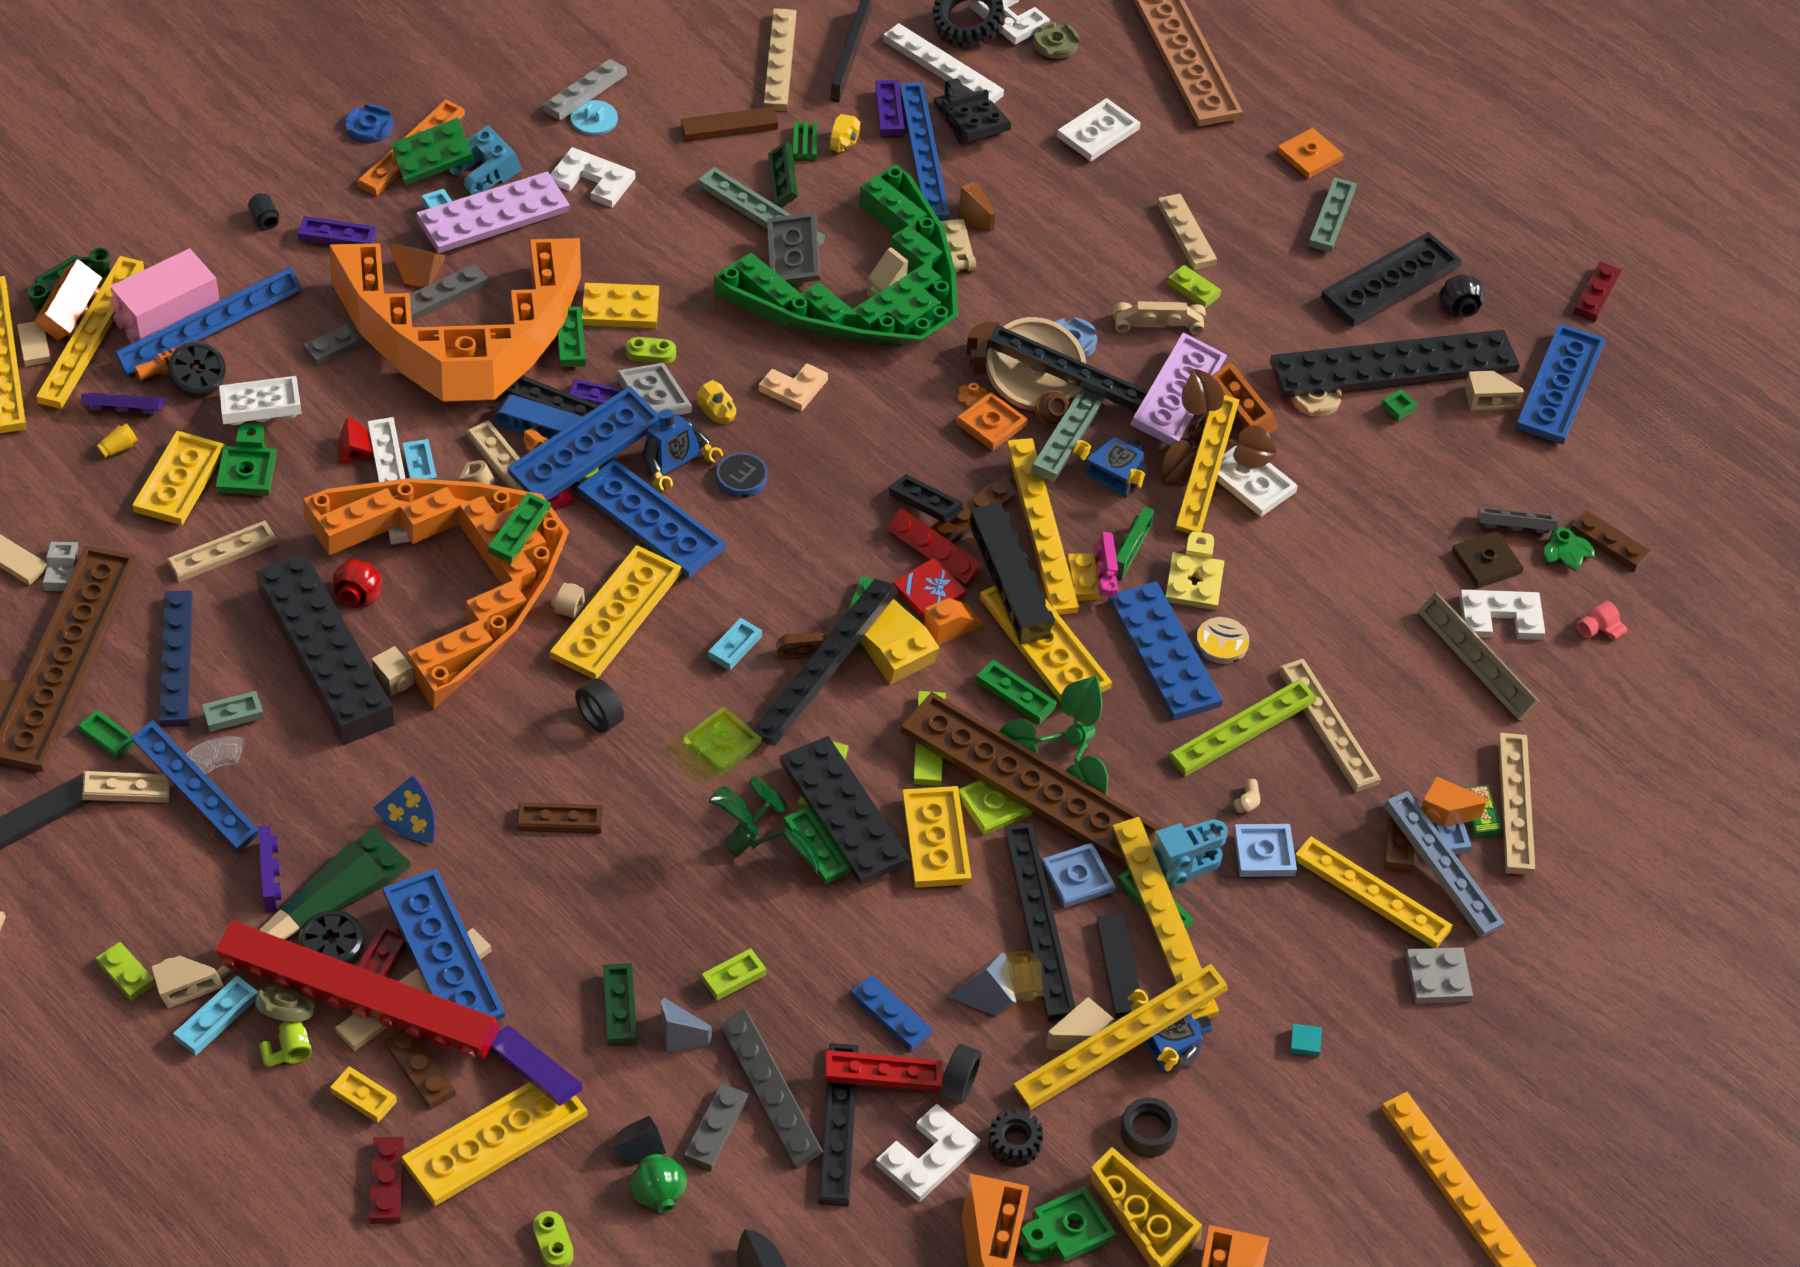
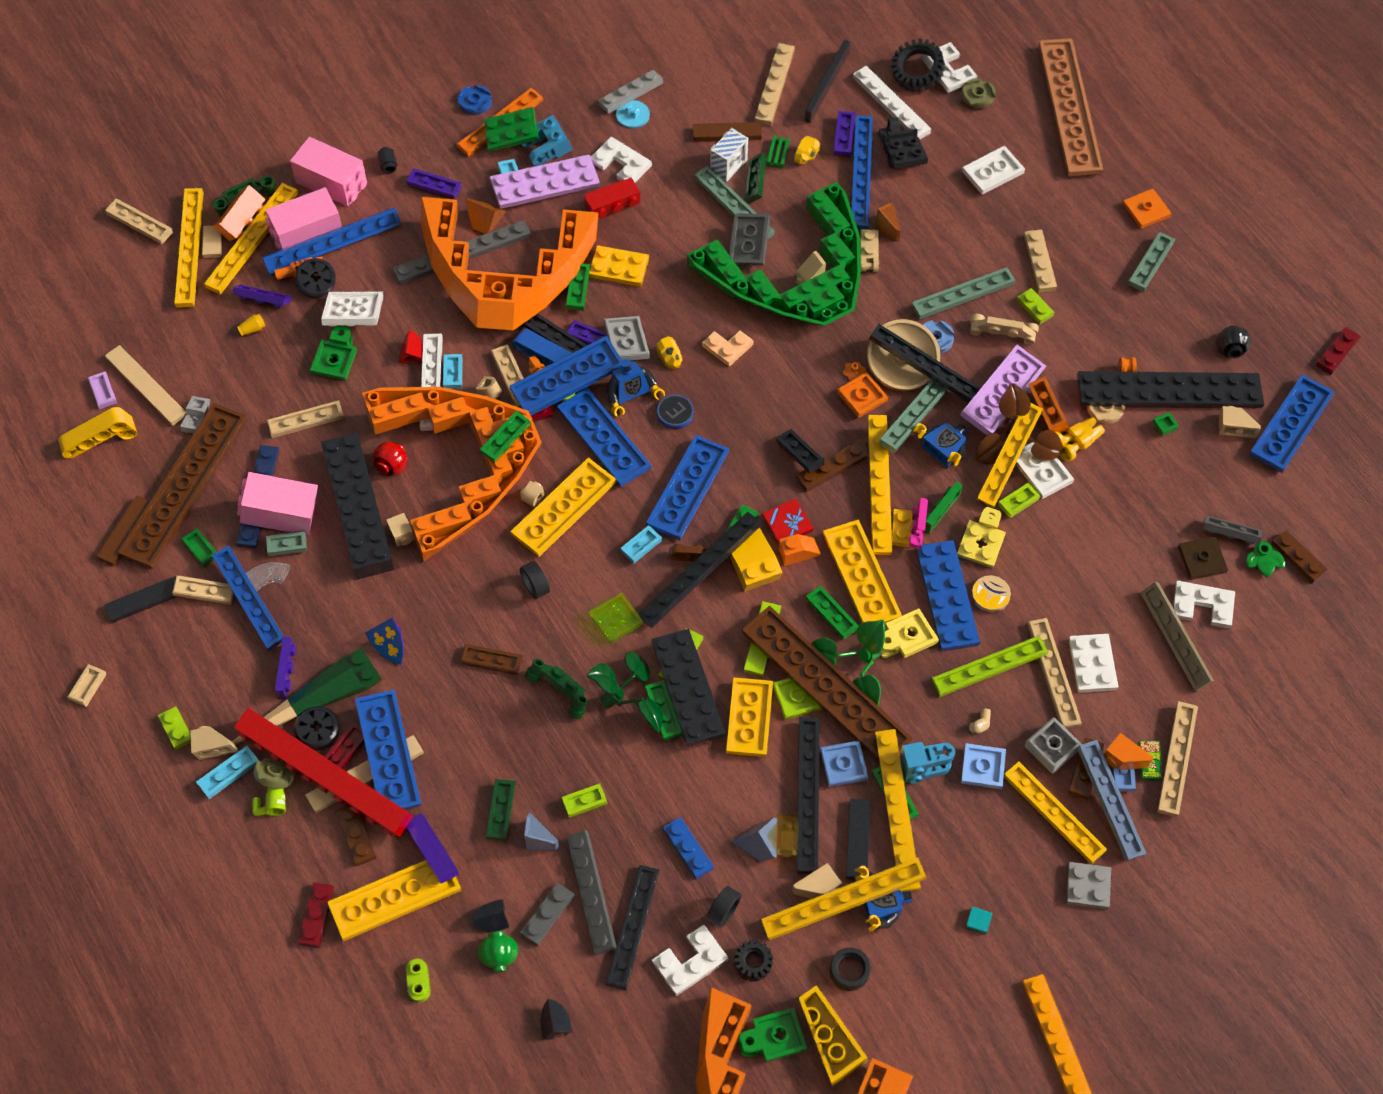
camera: 15 degrees right, 10 degrees up
(175, 223) = (324, 166): none -> bright pink brick
(179, 478) = (287, 359): yellow plate -> none
(212, 656) = (277, 503): none -> bright pink brick
(363, 1094) = (313, 848): yellow plate -> none
(594, 220) = (613, 198): none -> red brick
(651, 350) = (632, 305): lime plate -> none
(661, 827) = (561, 682): none -> dark green plate
(741, 147) = (729, 154): none -> white container
(782, 565) = (687, 487): none -> blue plate
(882, 1071) = (670, 893): red plate -> none
(934, 546) = (799, 489): red plate -> none
(977, 344) = (865, 330): reddish brown brick -> none
(1011, 573) = (846, 520): black brick -> none
(1051, 407) = (908, 390): reddish brown piece -> none
(1095, 281) = (963, 293): none -> sand green plate
(1125, 716) = (898, 639): none -> light yellow plate
(1231, 521) = (1019, 500): none -> lime plate
(1293, 435) = (1082, 435): none -> yellow piece
(1333, 339) = (1127, 365): none -> orange wheel
(1350, 810) = (1053, 733): none -> light grey brick
(1377, 705) = (1093, 663): none -> white plate
(1390, 279) = (1183, 320): black plate -> none
(1604, 618) = (1279, 620): coral piece -> none

